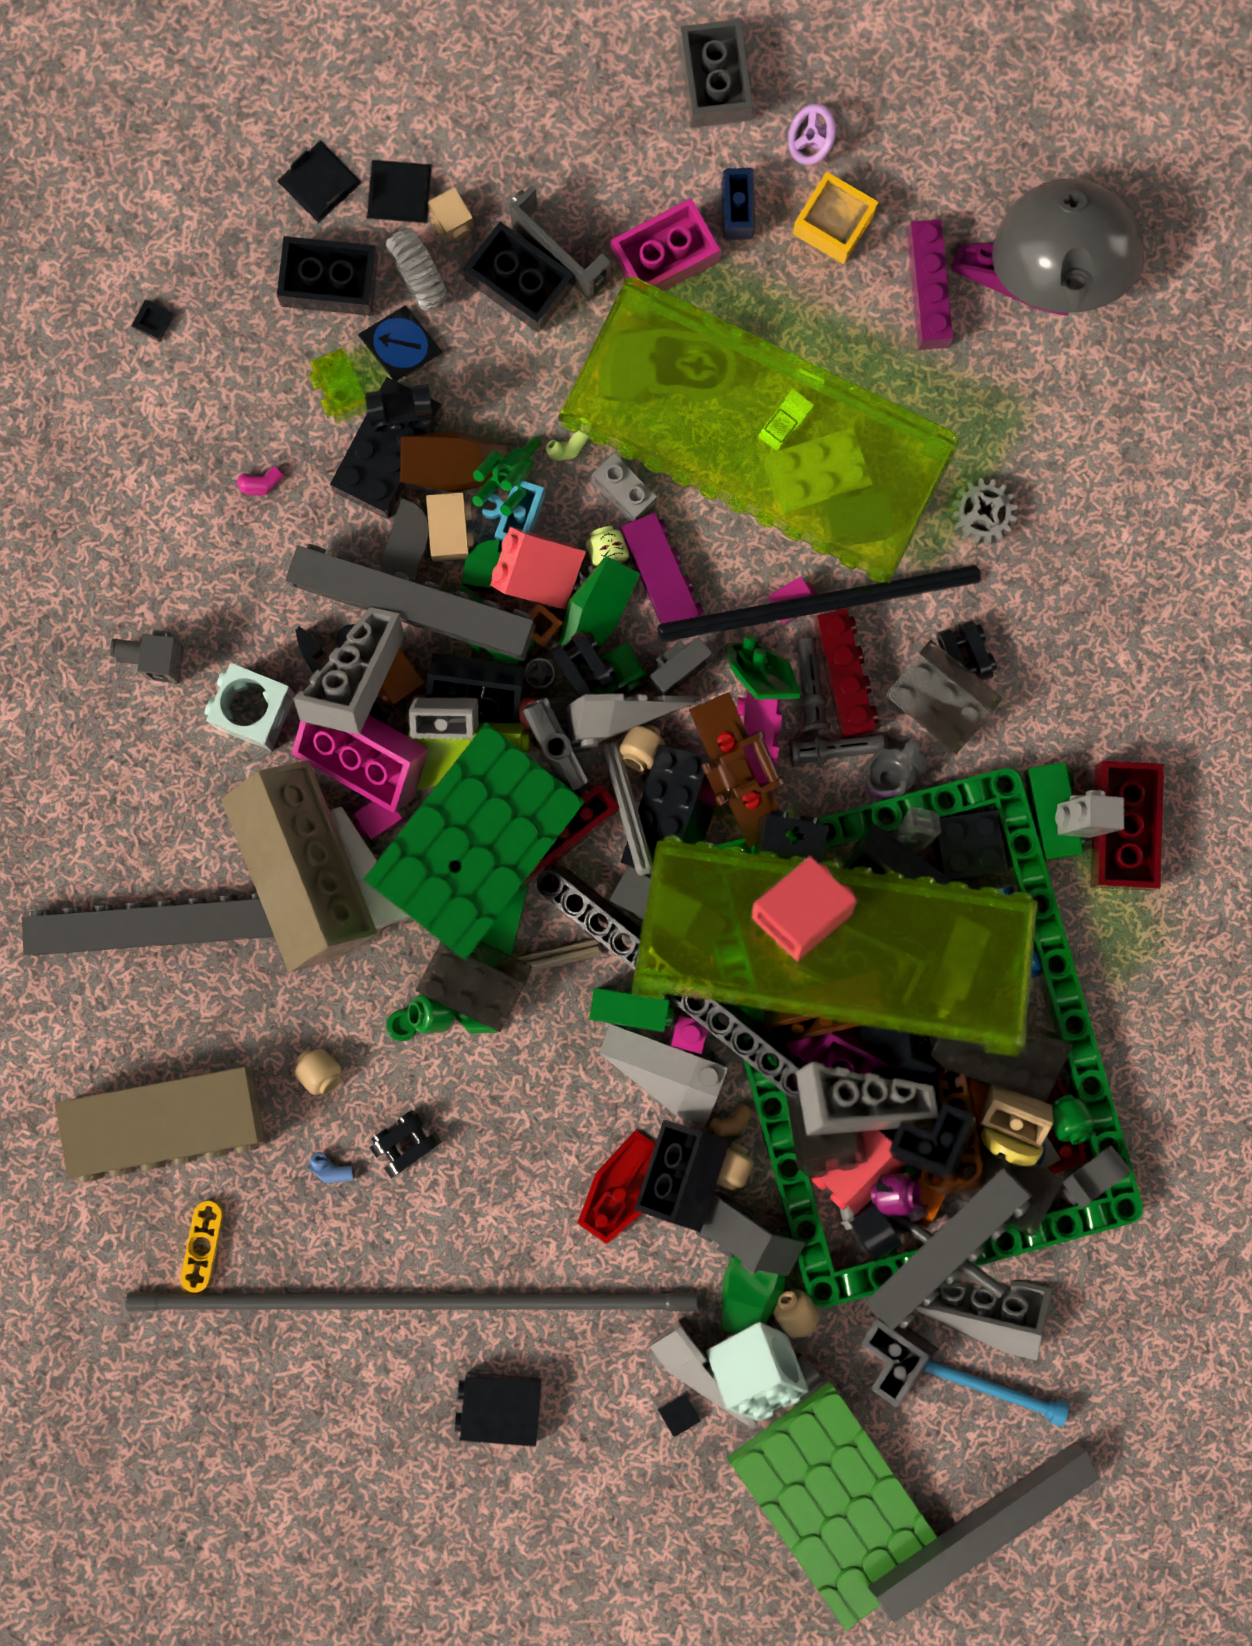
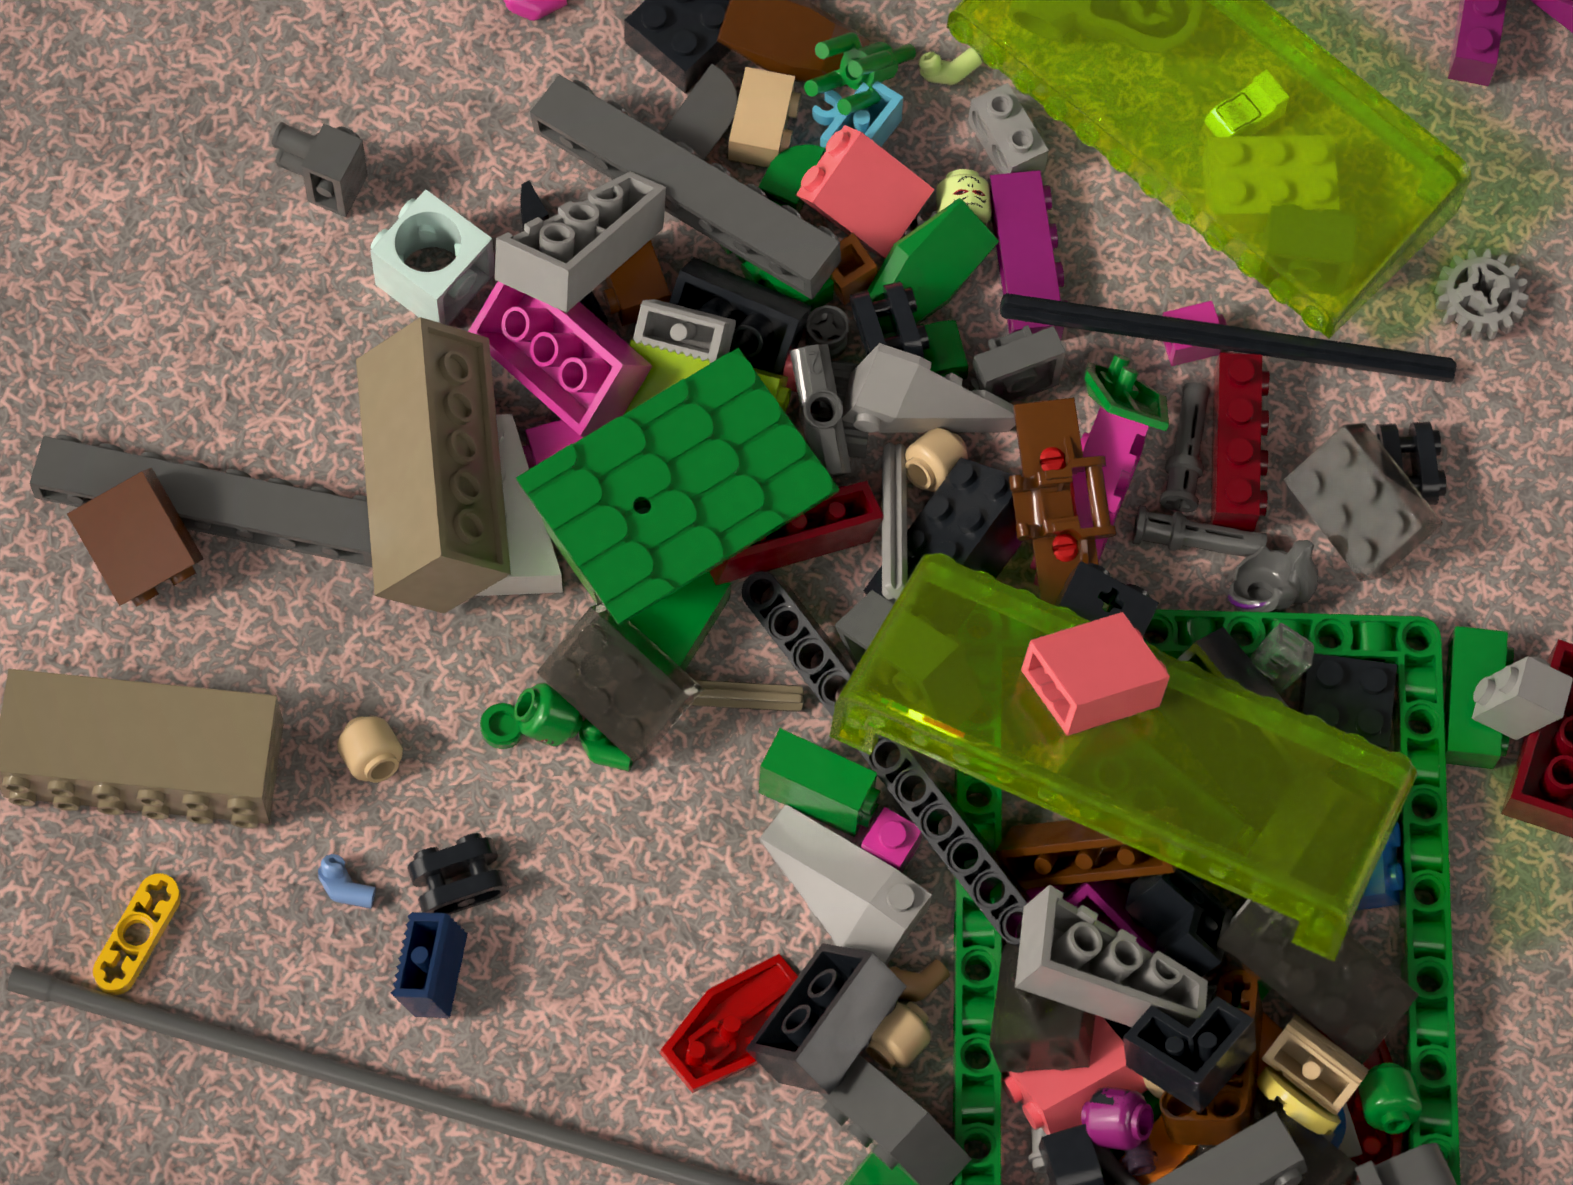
camera: 20 degrees right, 15 degrees down
(110, 974) = (136, 538): none -> reddish brown brick
(405, 1214) = (430, 964): none -> dark blue brick

